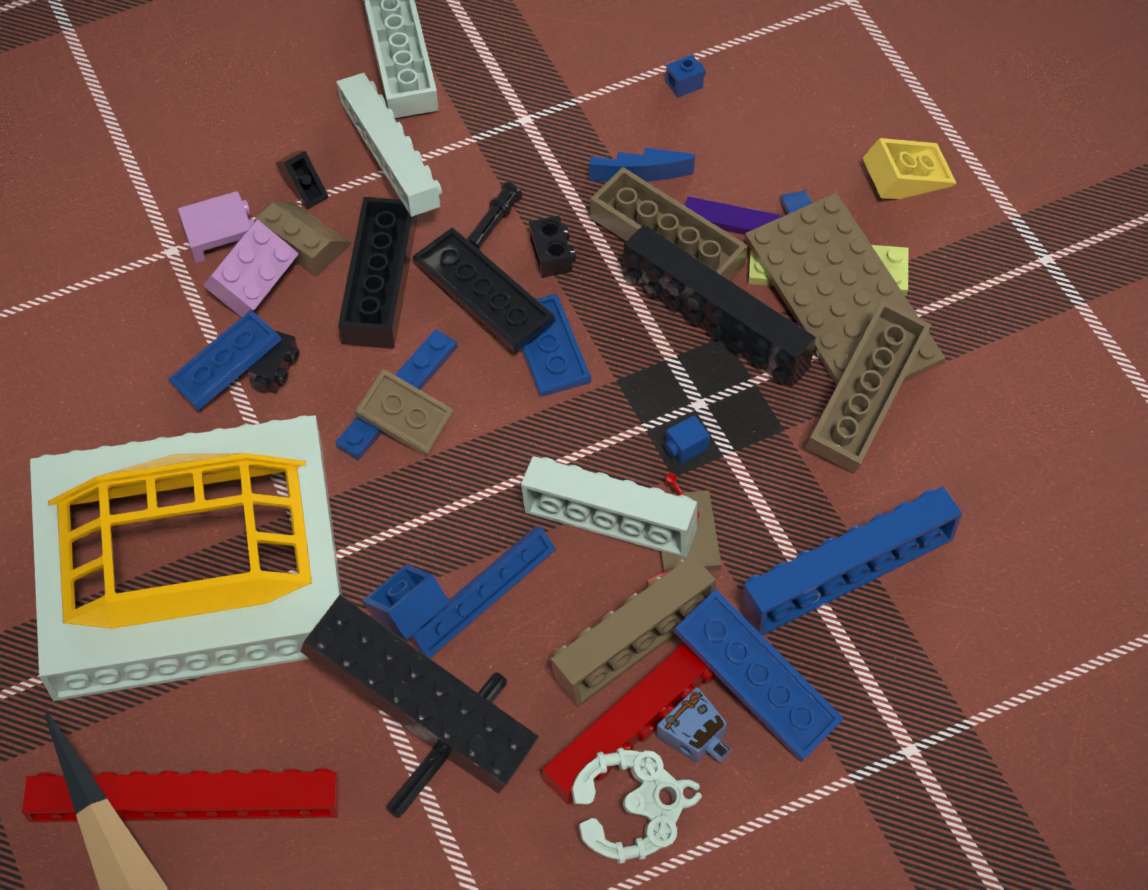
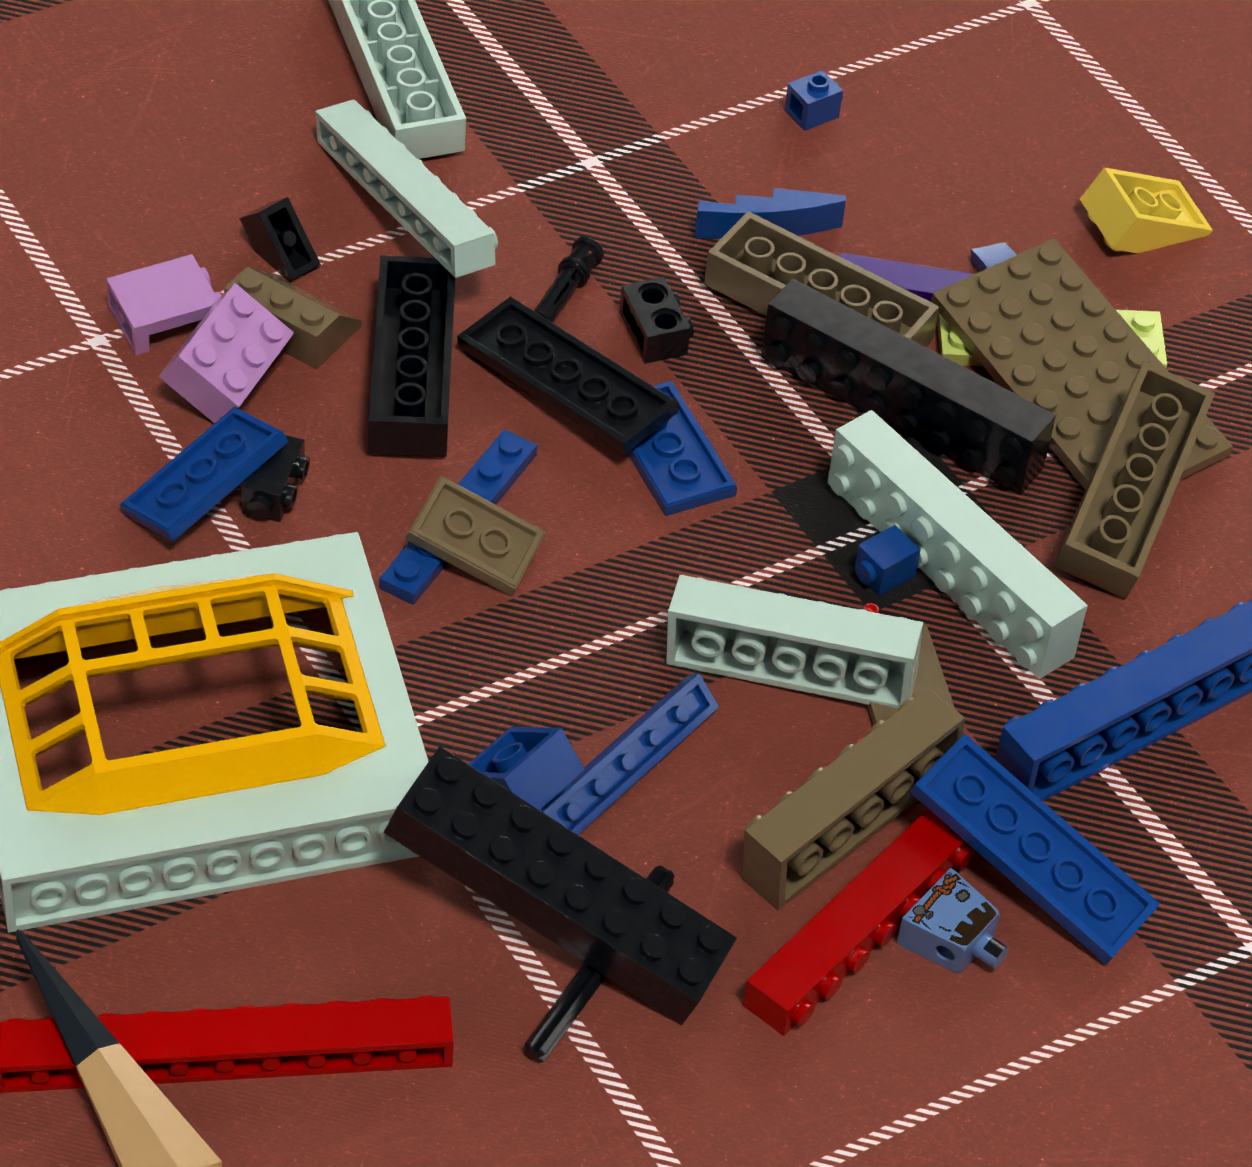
camera: 10 degrees left, 10 degrees down
(644, 801) = (898, 1017): light aqua piece -> none
(736, 432) = (959, 544): none -> light aqua brick

